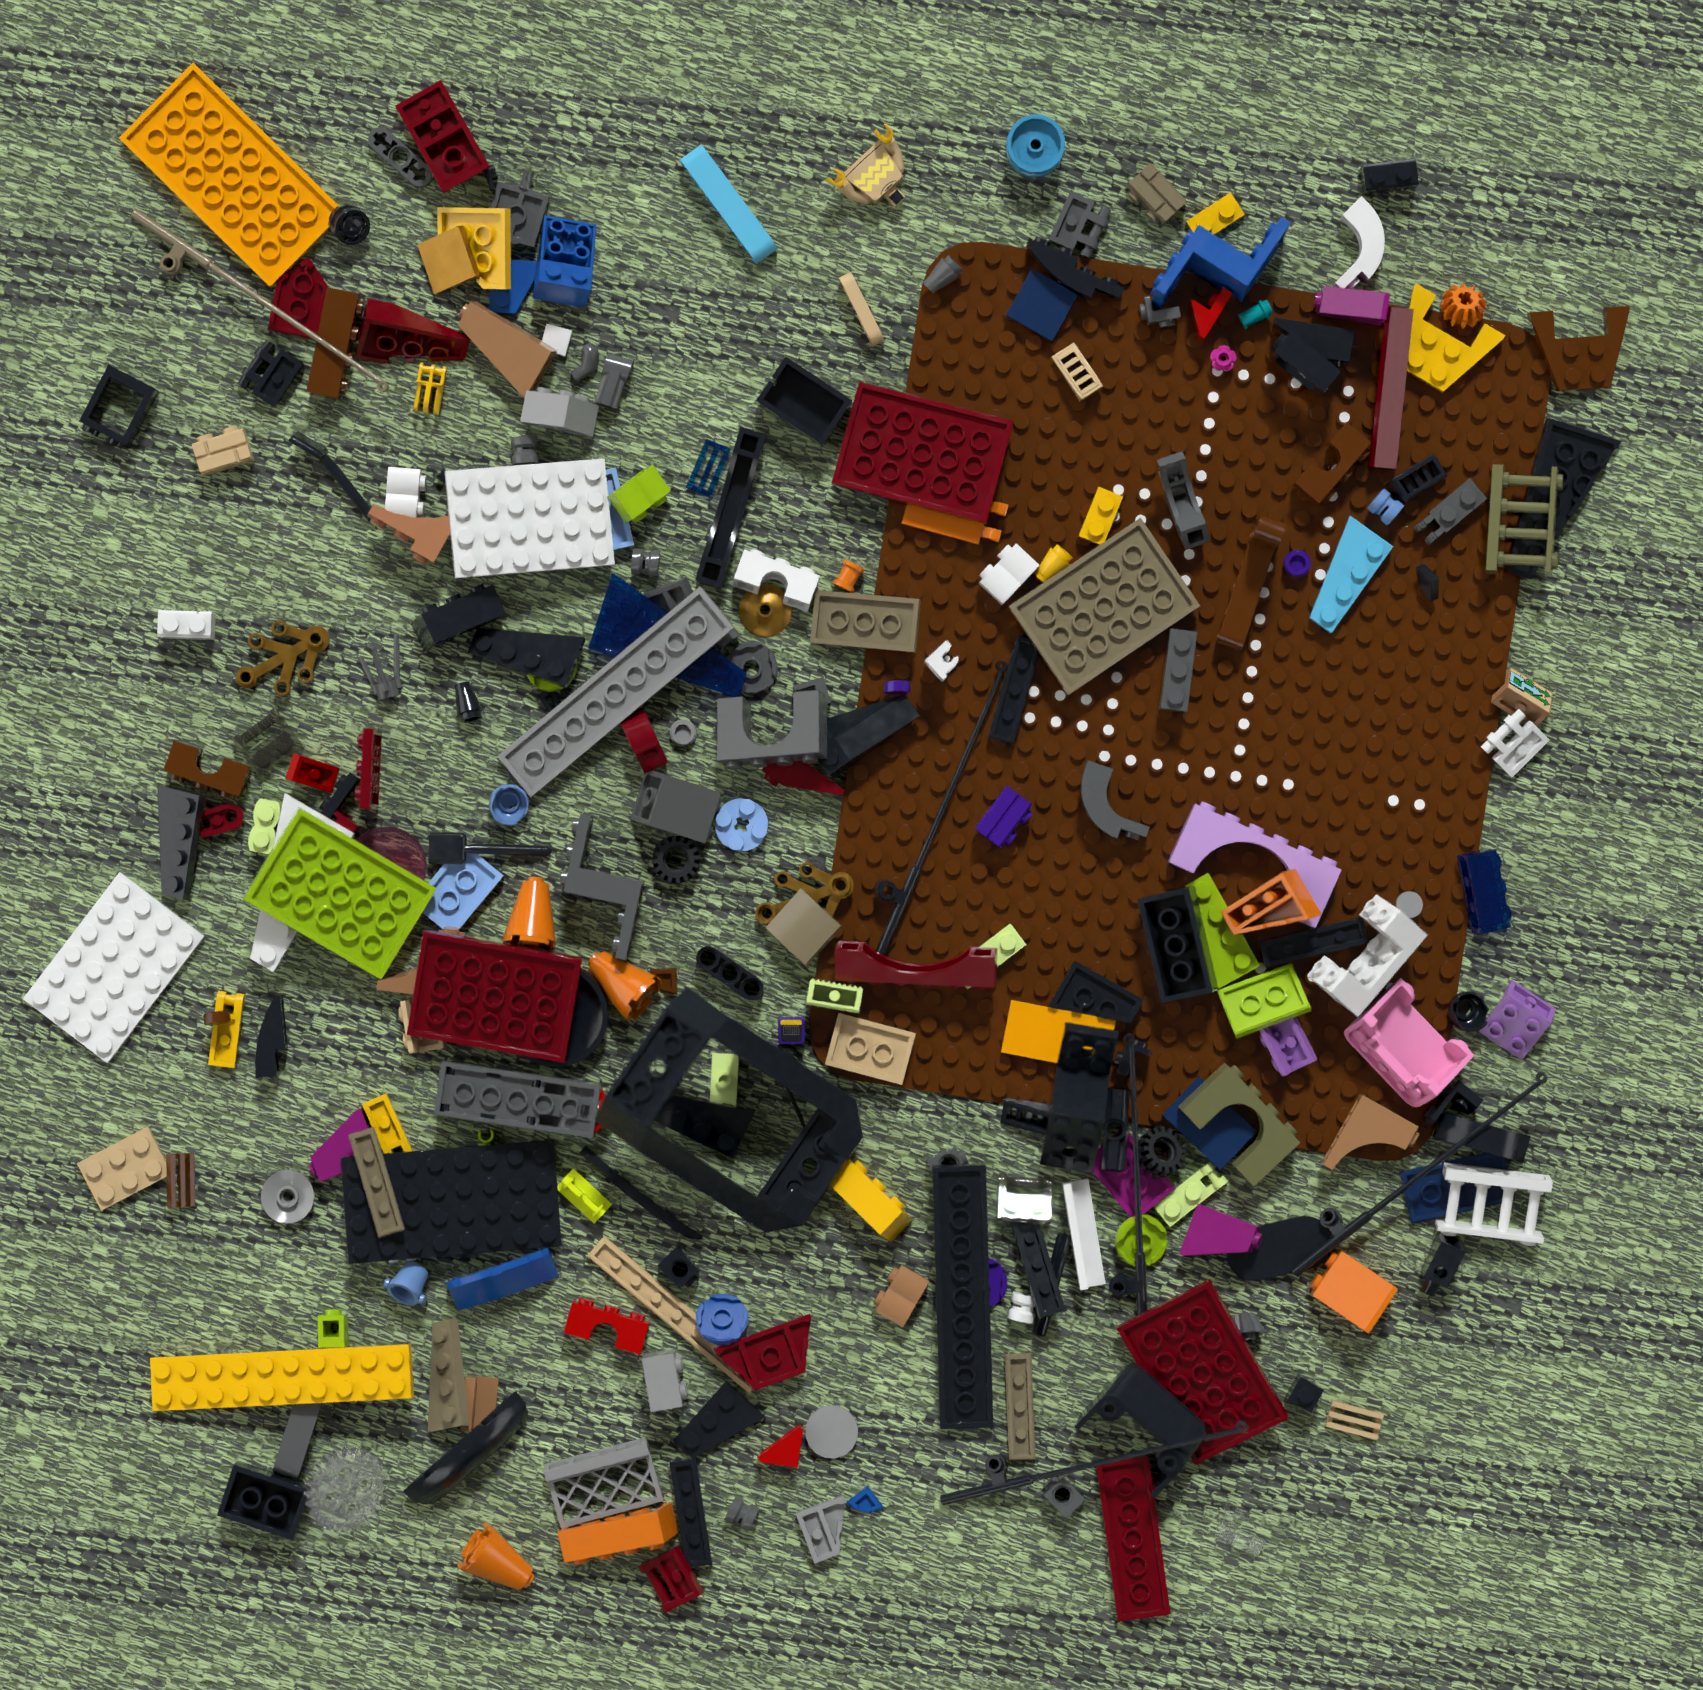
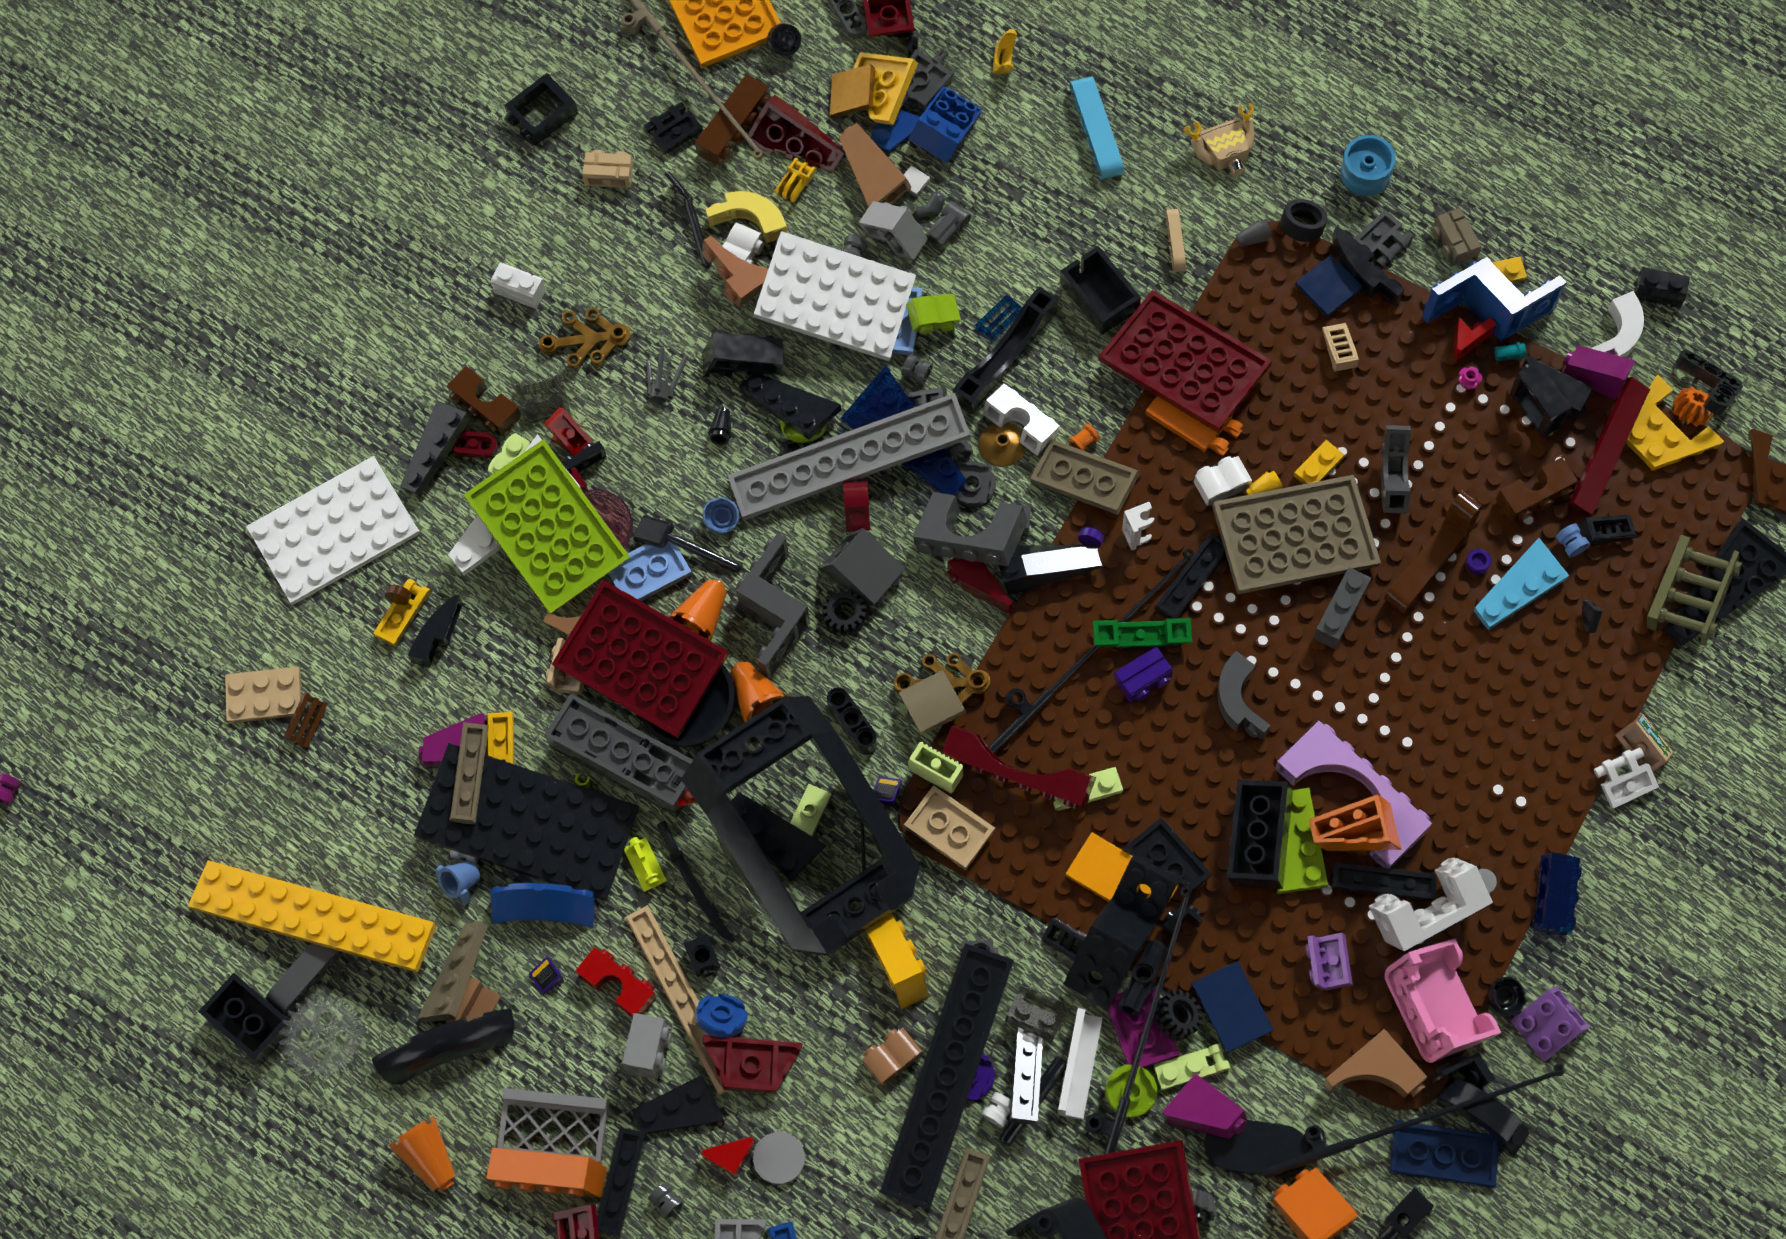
camera: 25 degrees right, 20 degrees down
(273, 1196) = (383, 757): light grey dish -> none
(300, 296) = (721, 78): dark red tile -> none
(326, 1336) = (375, 885): lime brick -> none
(369, 769) = (616, 439): dark red plate -> none
(398, 438) = (750, 207): none -> light yellow arch
(534, 1343) = (546, 975): none -> slope
(594, 138) = (1004, 46): none -> yellow helmet
(683, 732) = (892, 514): light grey tile -> none
(727, 820) = (903, 615): light blue plate -> none
(986, 773) = (1142, 634): none -> green slope
(991, 220) = (1298, 230): none -> black tyre
(1163, 317) = (1425, 325): dark grey bracket -> none
(1264, 1000) = (1321, 914): lime tile -> none
(1273, 1138) = (1262, 977): olive arch -> none
(1452, 509) = (1631, 565): dark grey hinge -> none
(1483, 1179) = (1496, 1165): white fence -> none
(1484, 270) = (1725, 385): none -> black beam

